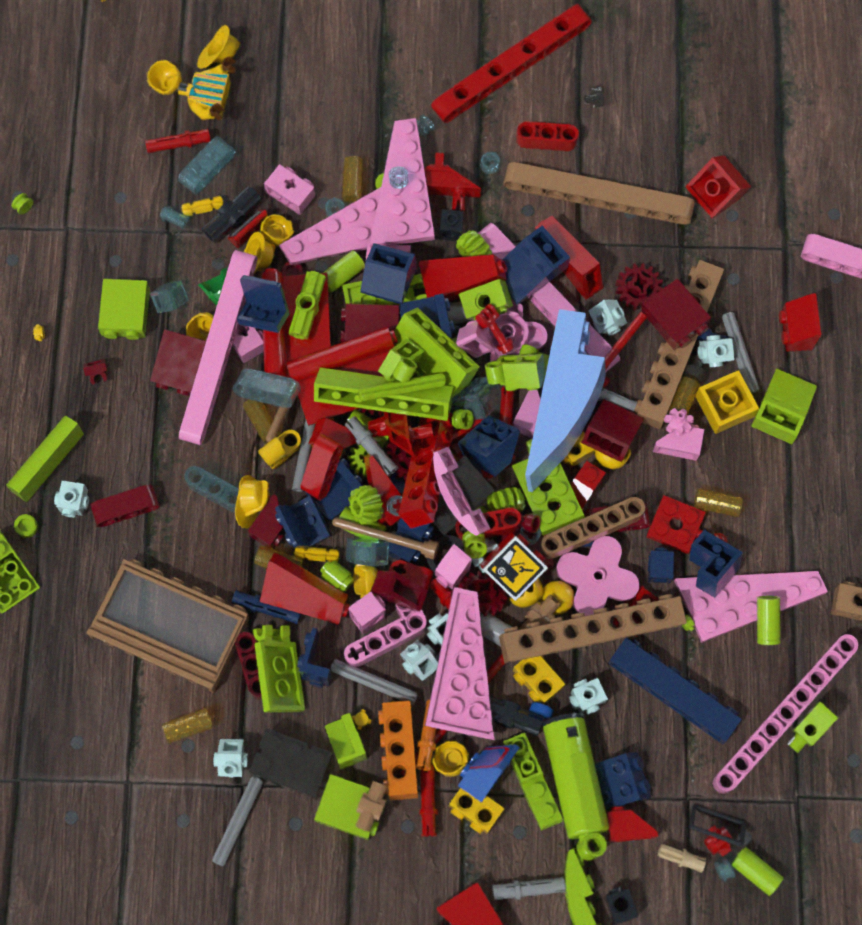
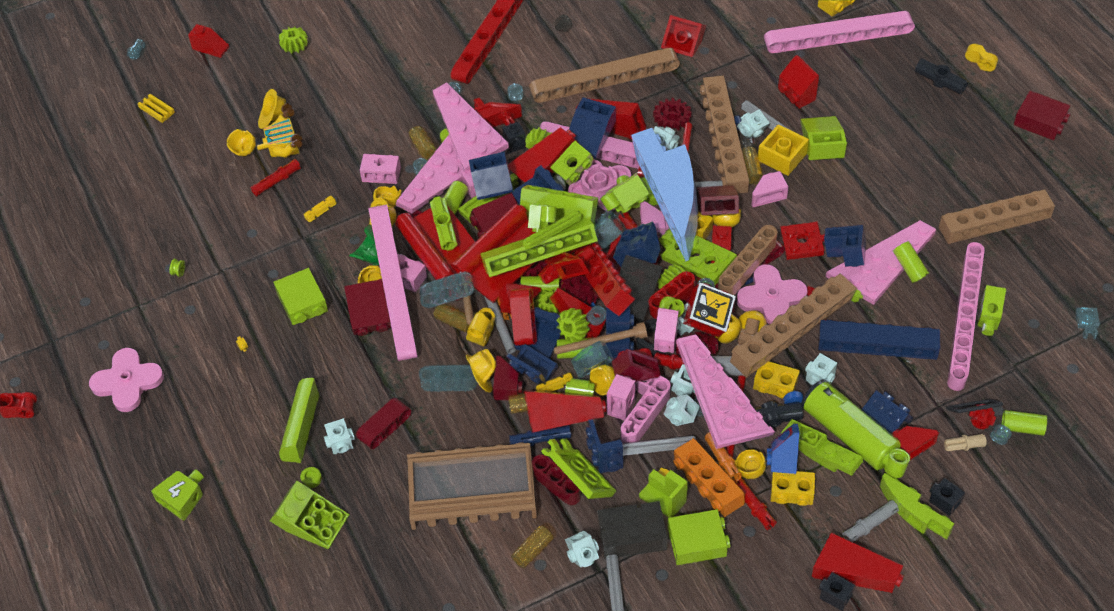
camera: 25 degrees left, 20 degrees down
(94, 368) = (302, 344): dark red tile -> none
(169, 296) = (331, 274): clear light blue panel -> none
(173, 217) = (302, 224): clear light blue pin -> none
(206, 165) = (307, 182): clear light blue beam -> none
(231, 214) = (346, 203): black piece -> none
(249, 227) = (363, 208): red slope -> none
(264, 304) = (411, 229): dark blue bracket -> none
(370, 445) = (547, 285): light grey pin -> none
(371, 806) = (715, 519): medium nougat axle -> none
(394, 173) = (459, 118): clear light blue bush -> none
(454, 497) = (618, 264): bright pink slope -> none
(467, 420) = (606, 241): lime bush -> none
(474, 339) = (581, 185): bright pink slope -> none
(487, 318) = (582, 168): red hinge -> none
(531, 522) = (702, 276): dark red hinge -> none
(556, 131) = (545, 58): red beam -> none
(660, 566) = (811, 269): dark blue brick -> none
(676, 315) = (712, 111): dark red brick -> none
(679, 421) = (760, 172): bright pink plant -> none
(718, 502) = (821, 212): clear yellow axle -> none

